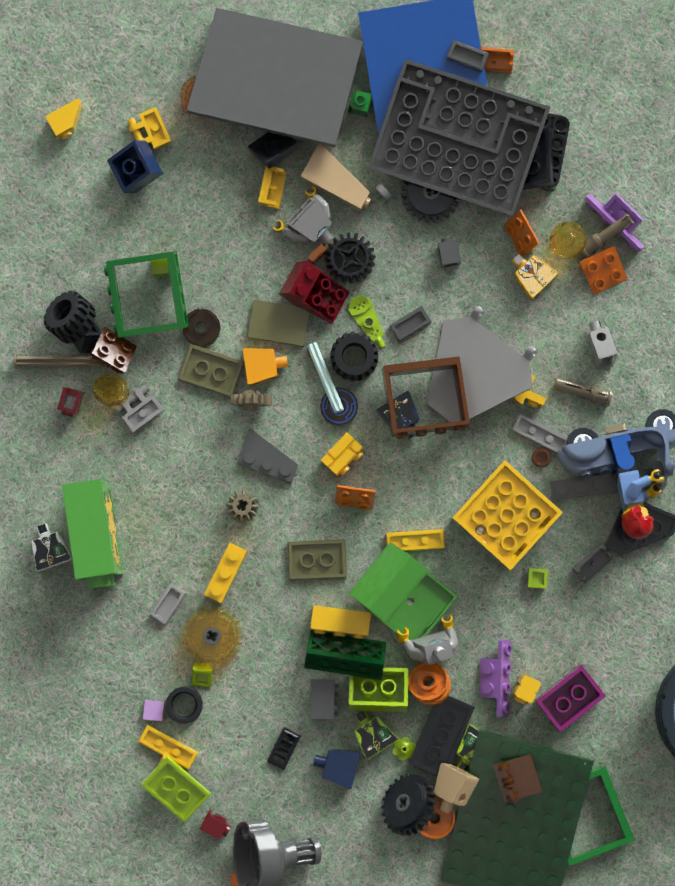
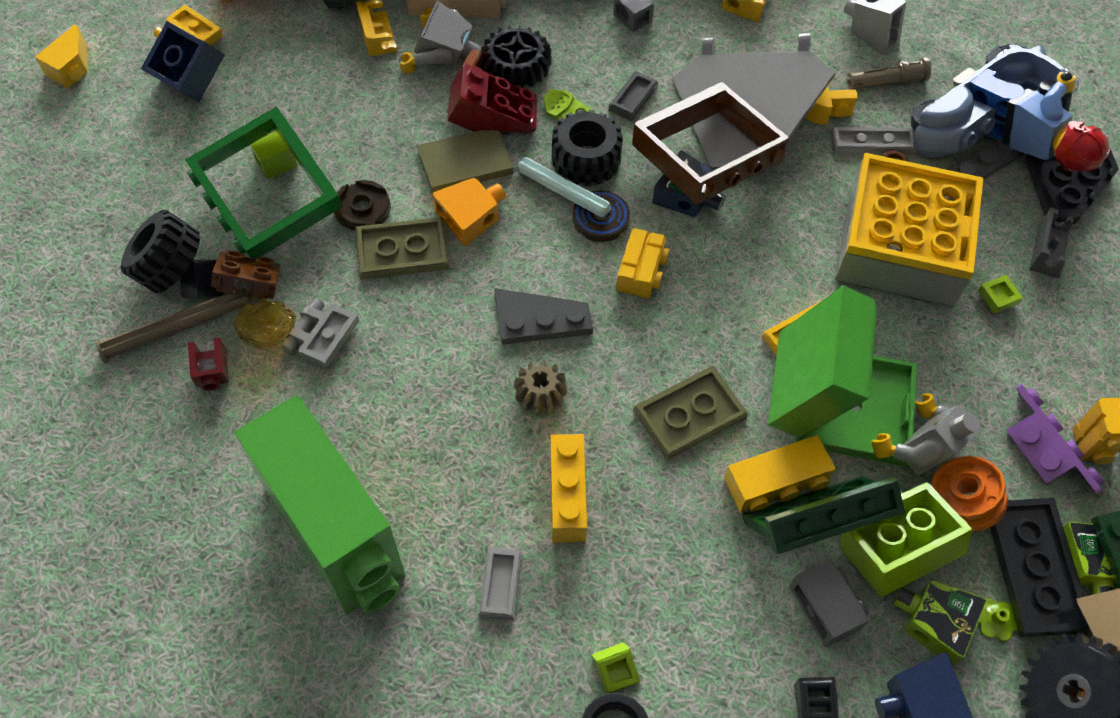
camera: 30 degrees left, 25 degrees down
(49, 549) = (265, 589): black torso -> none
(213, 621) = (609, 614): clear yellow gear -> none
(251, 400) = (491, 233): dark tan gear -> none
(355, 497) = (693, 298): orange hinge -> none

